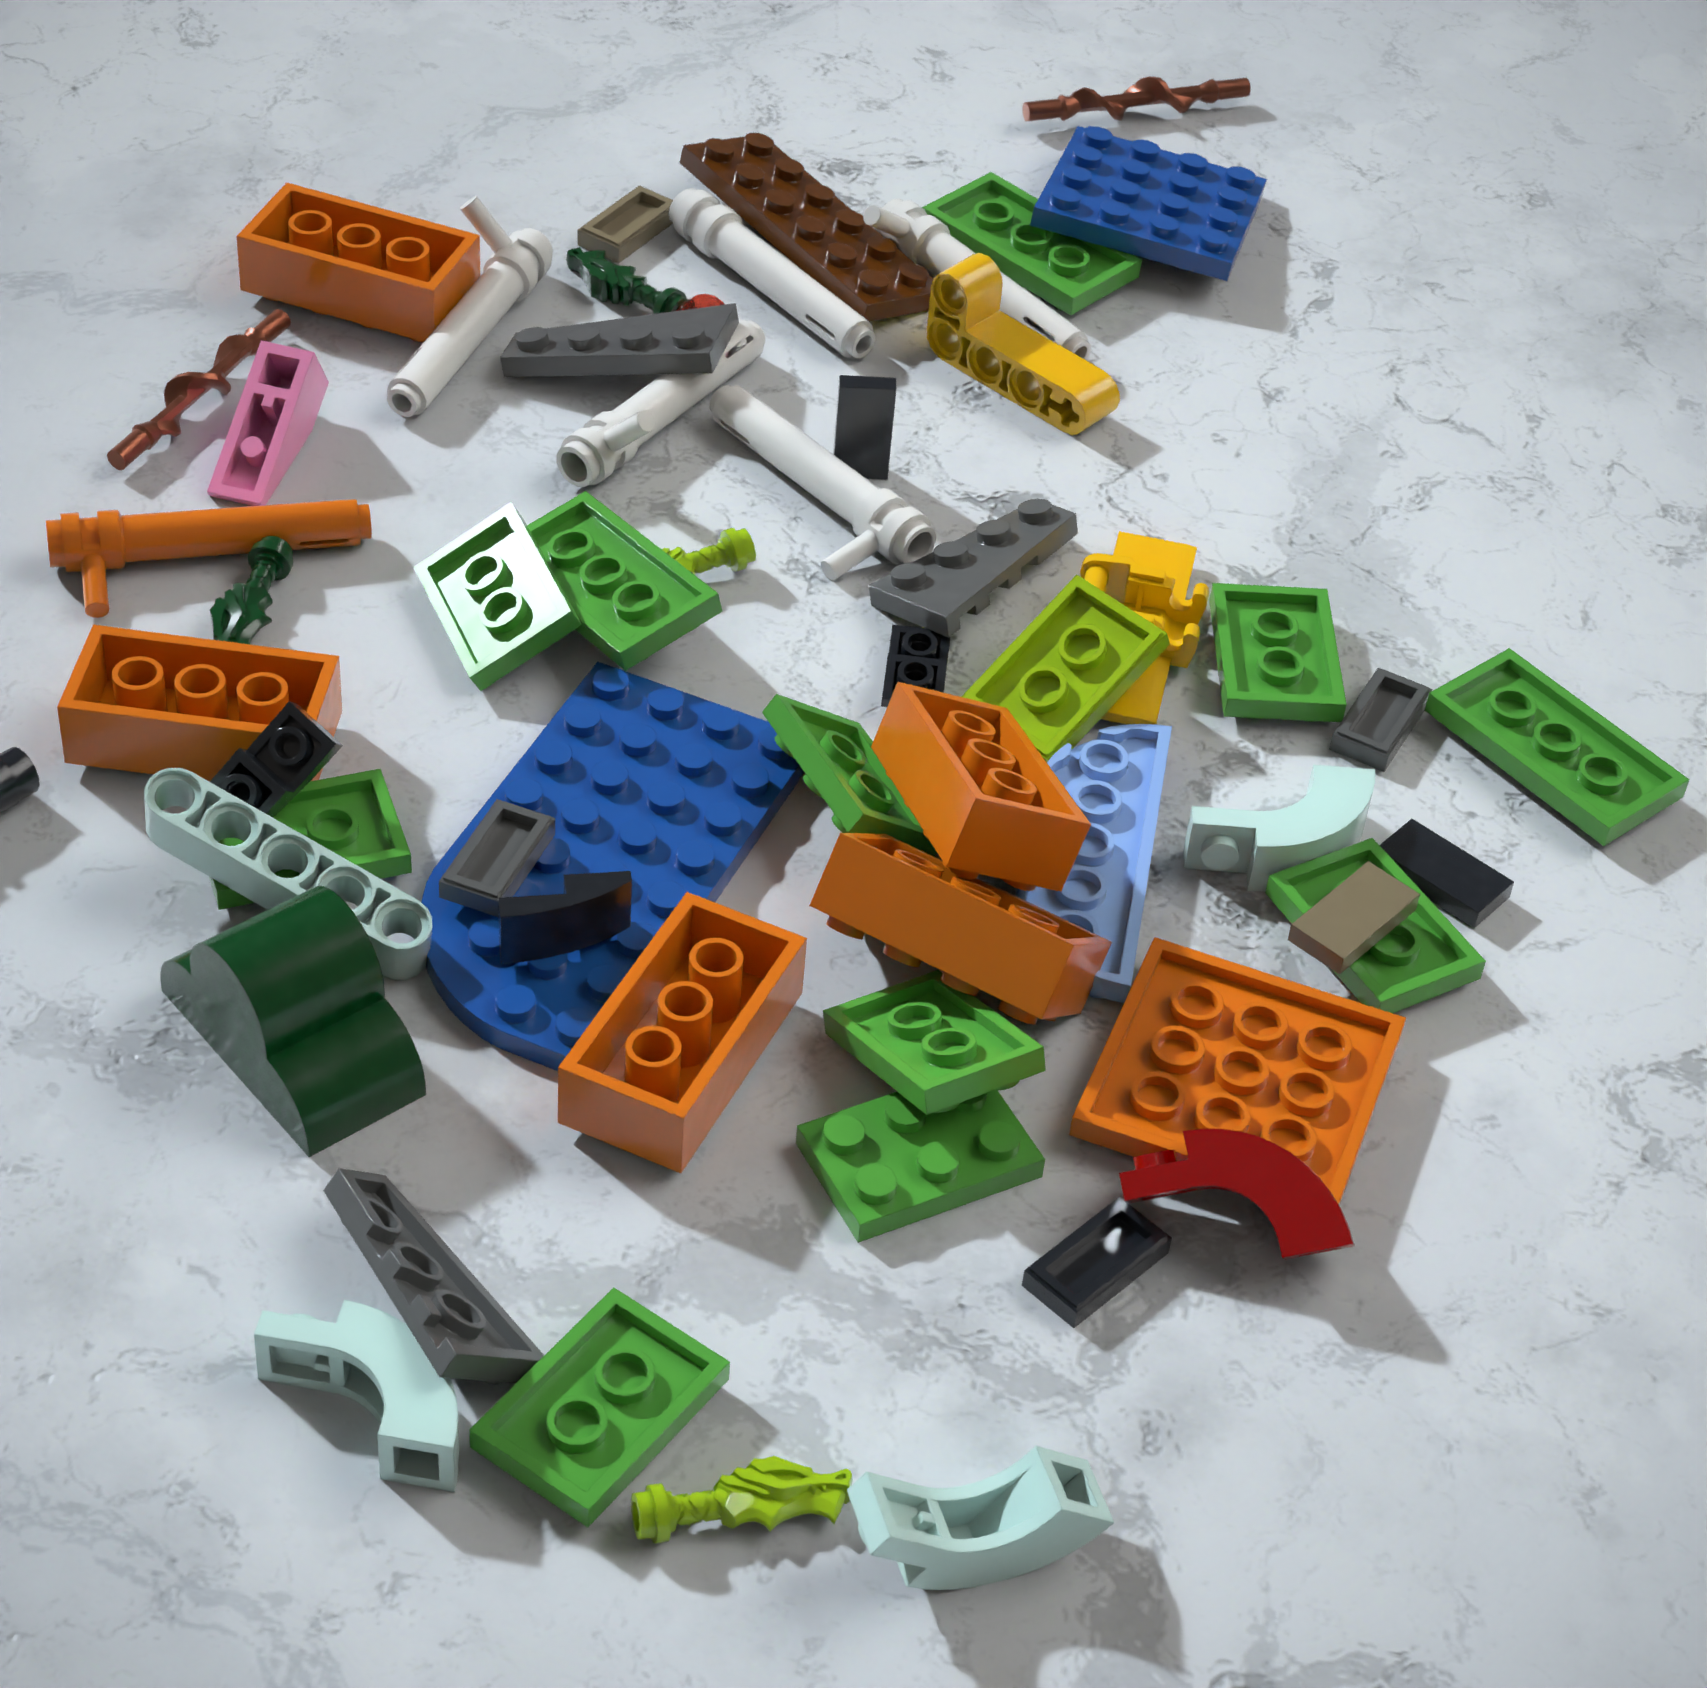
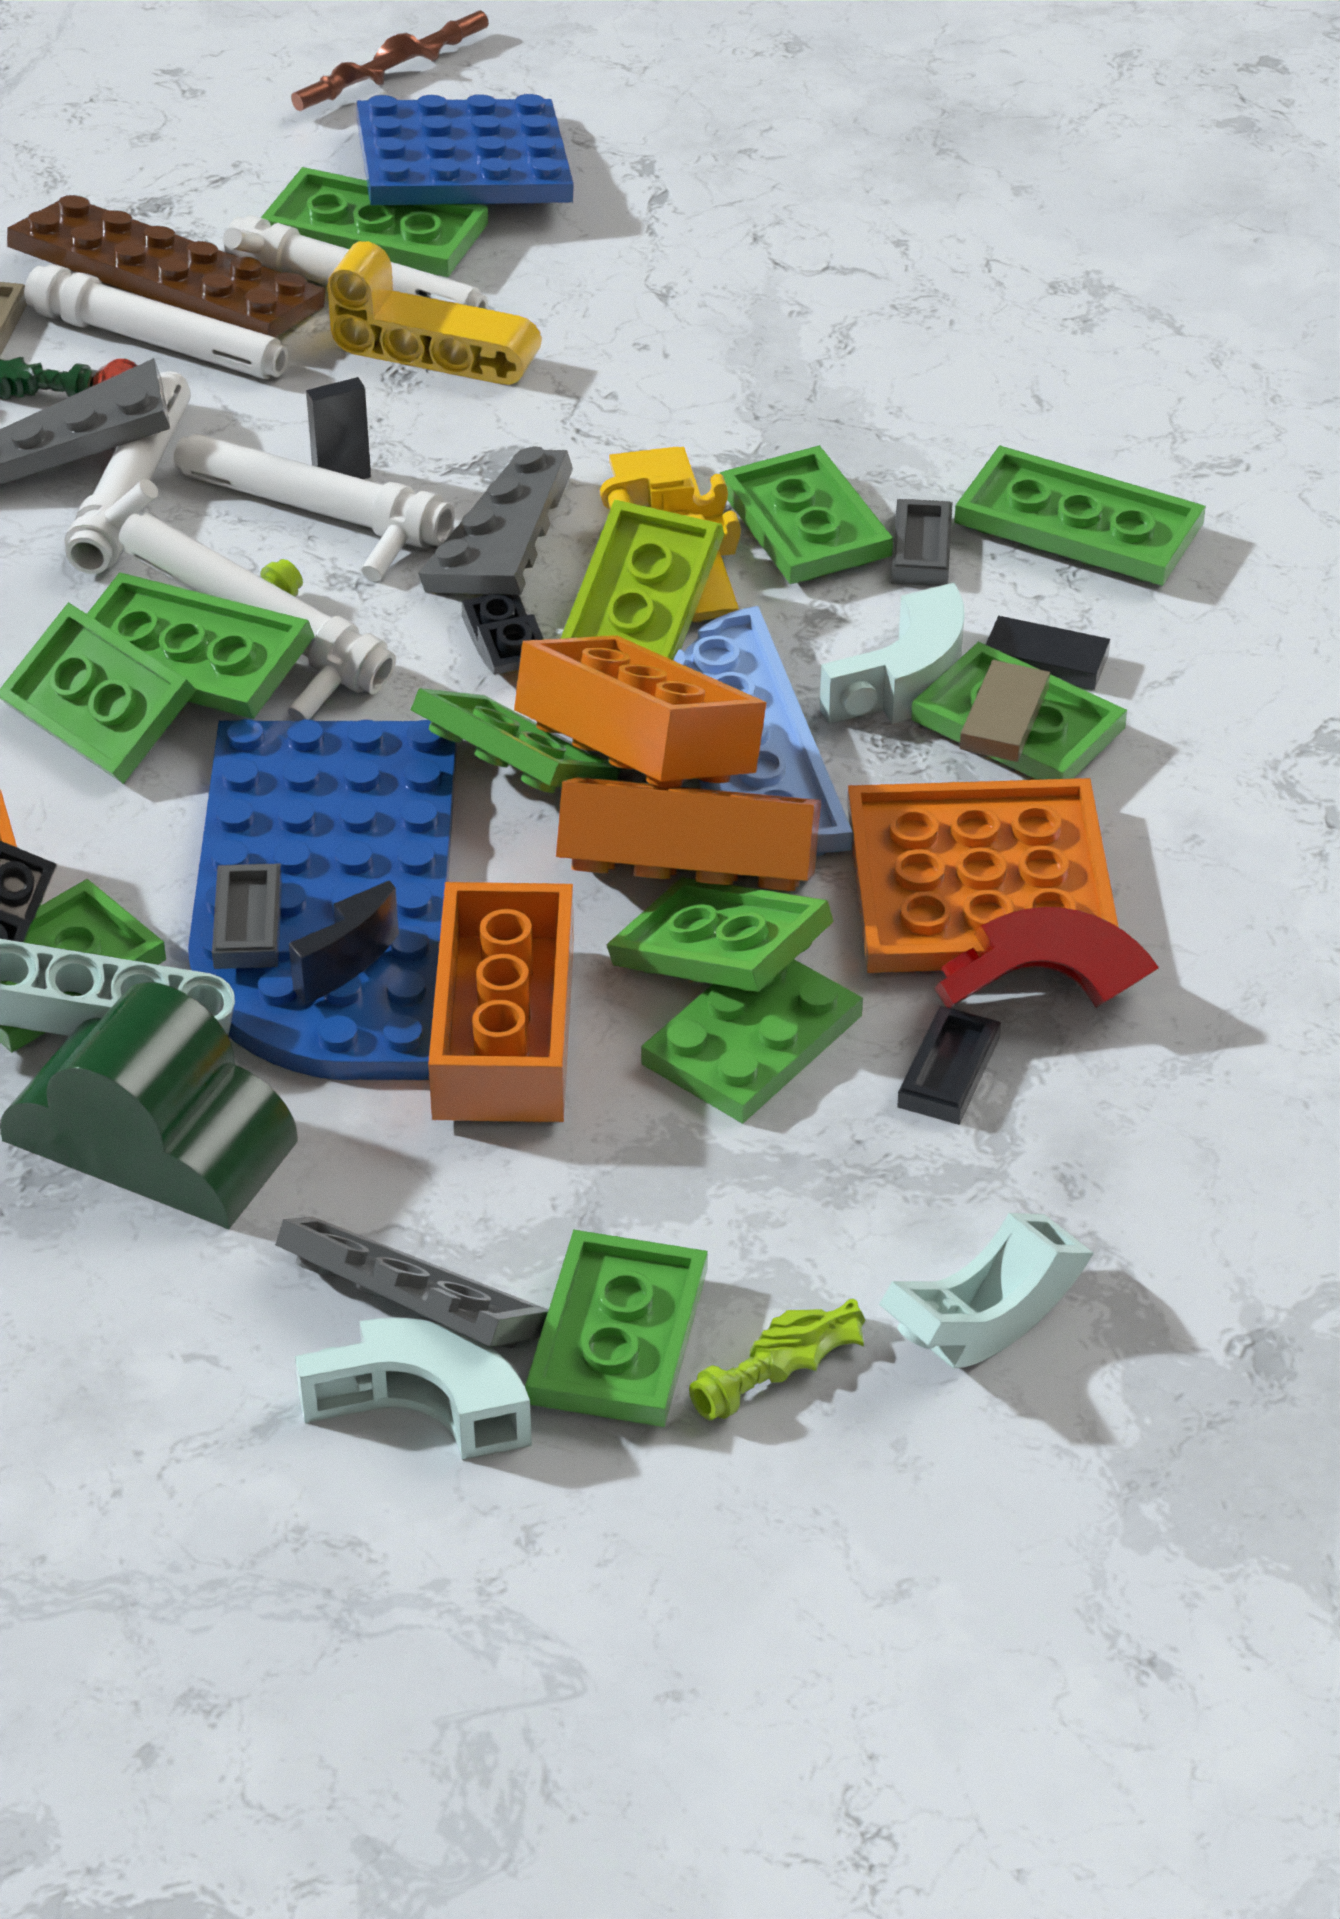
camera: 20 degrees left, 0 degrees up
(745, 625) = (336, 649): none -> white cylinder

